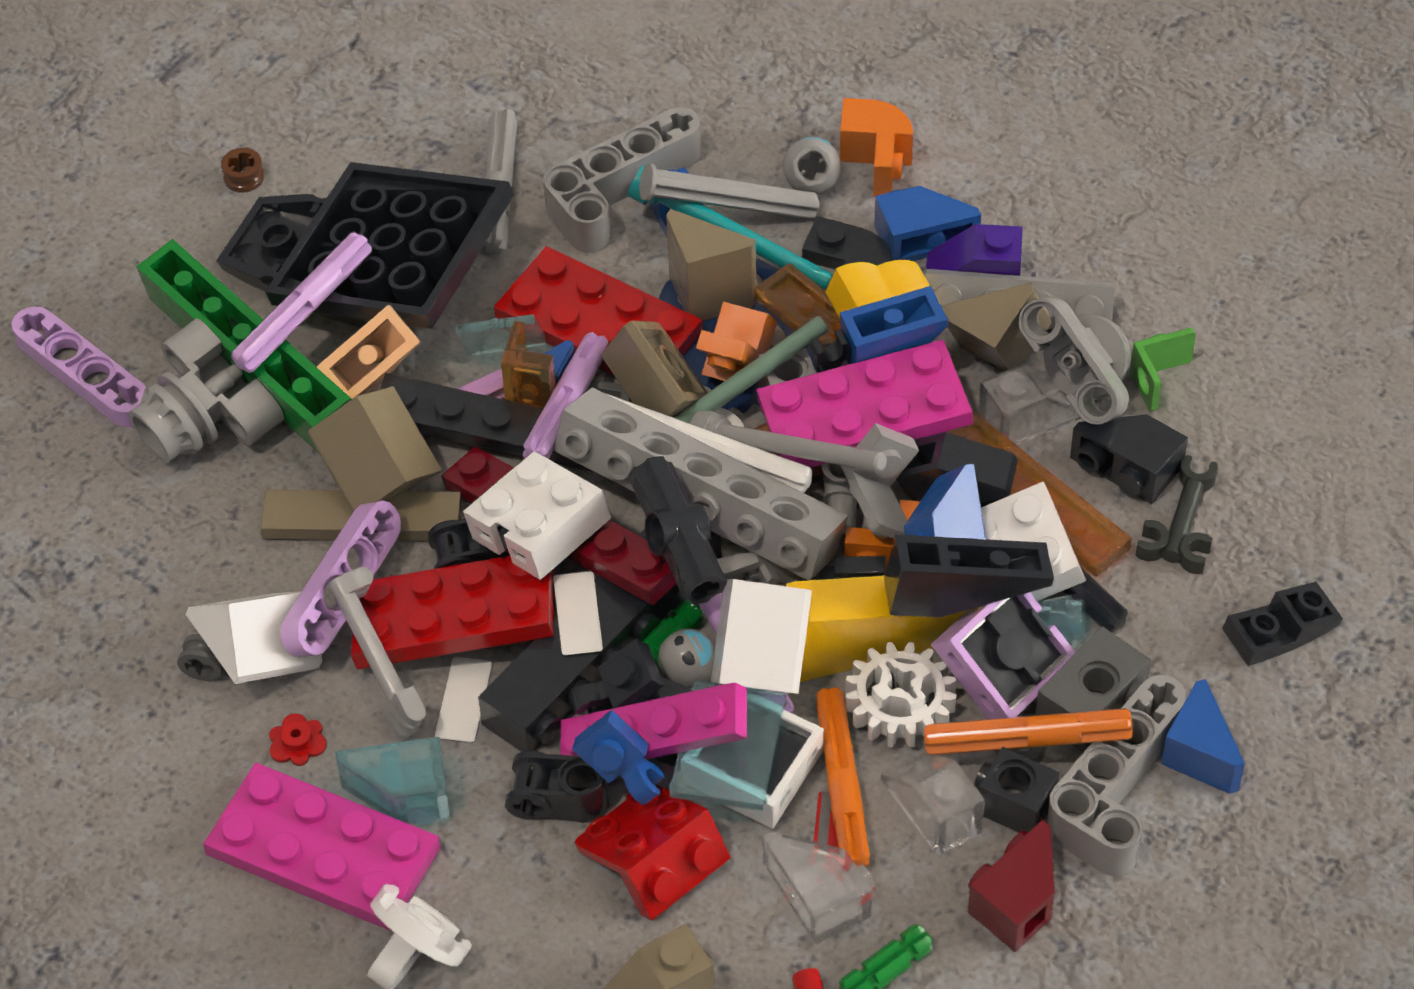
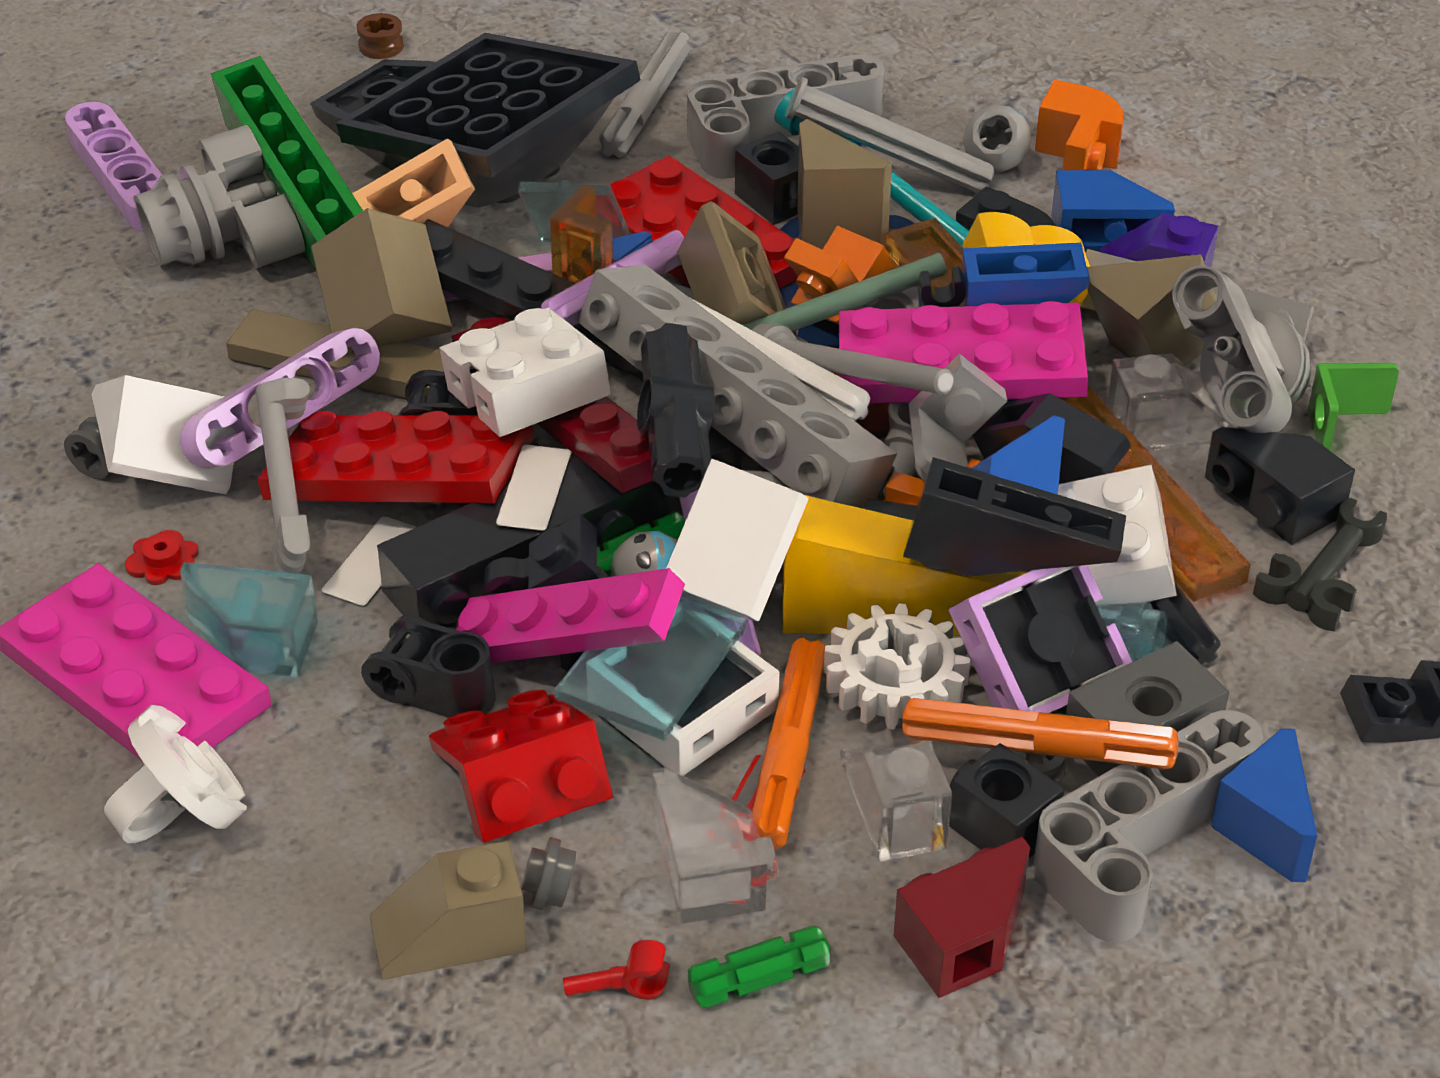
camera: 15 degrees right, 10 degrees down
(301, 302) = (360, 128): lavender axle -> none
(617, 750) = (505, 627): blue plate -> none
(640, 249) = (768, 176): none -> black brick
(714, 933) = (549, 874): none -> dark grey plate

